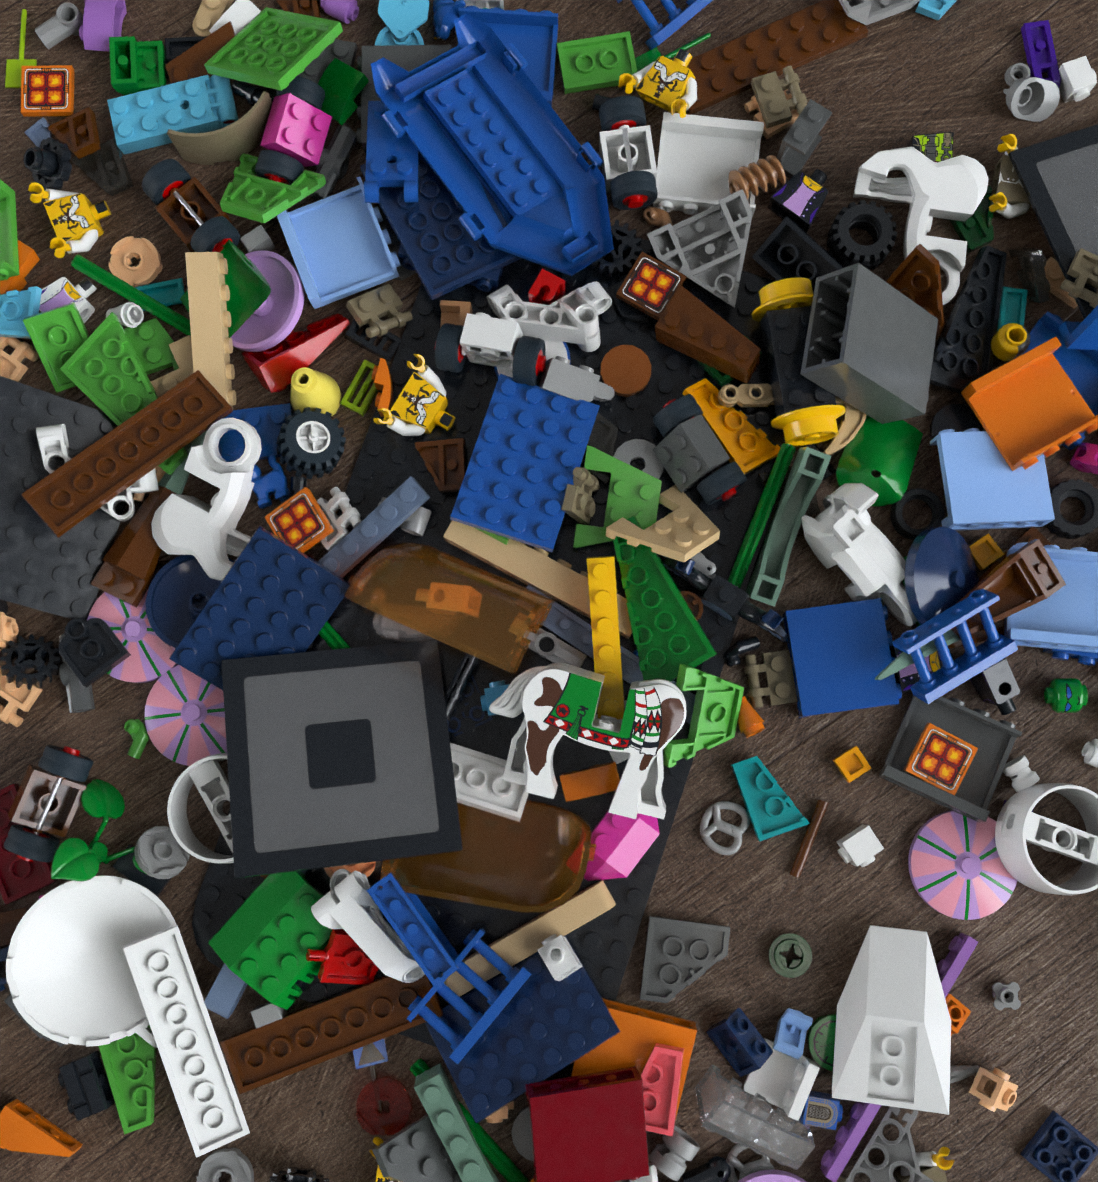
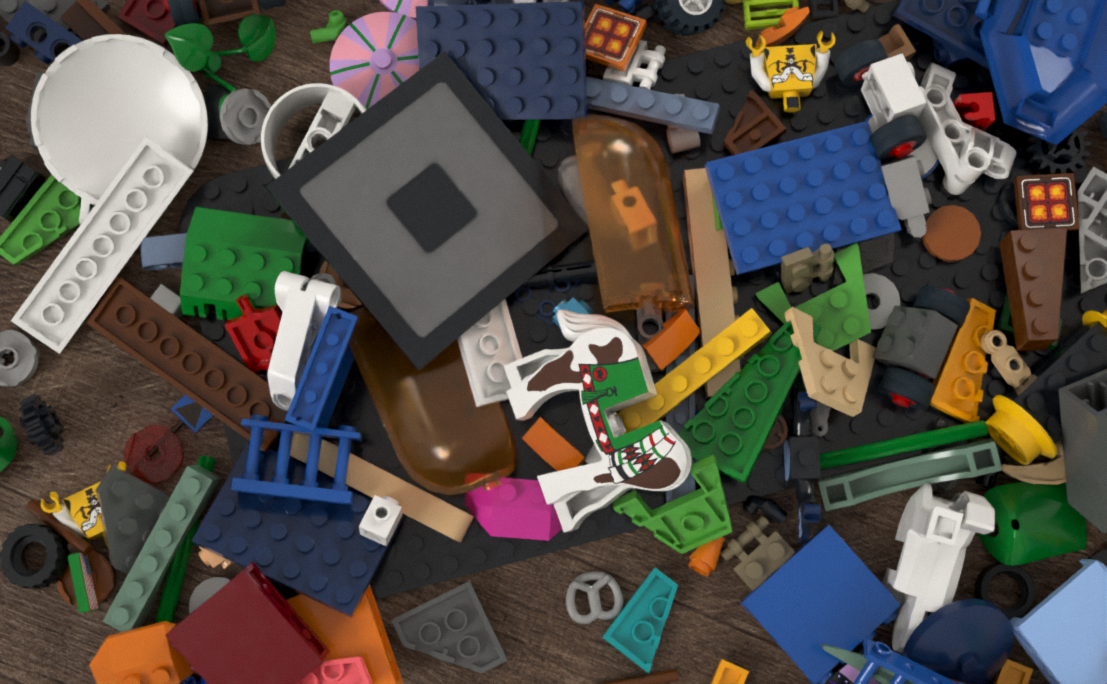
camera: 55 degrees right, 0 degrees up
(569, 634) = (672, 340): none -> orange slope

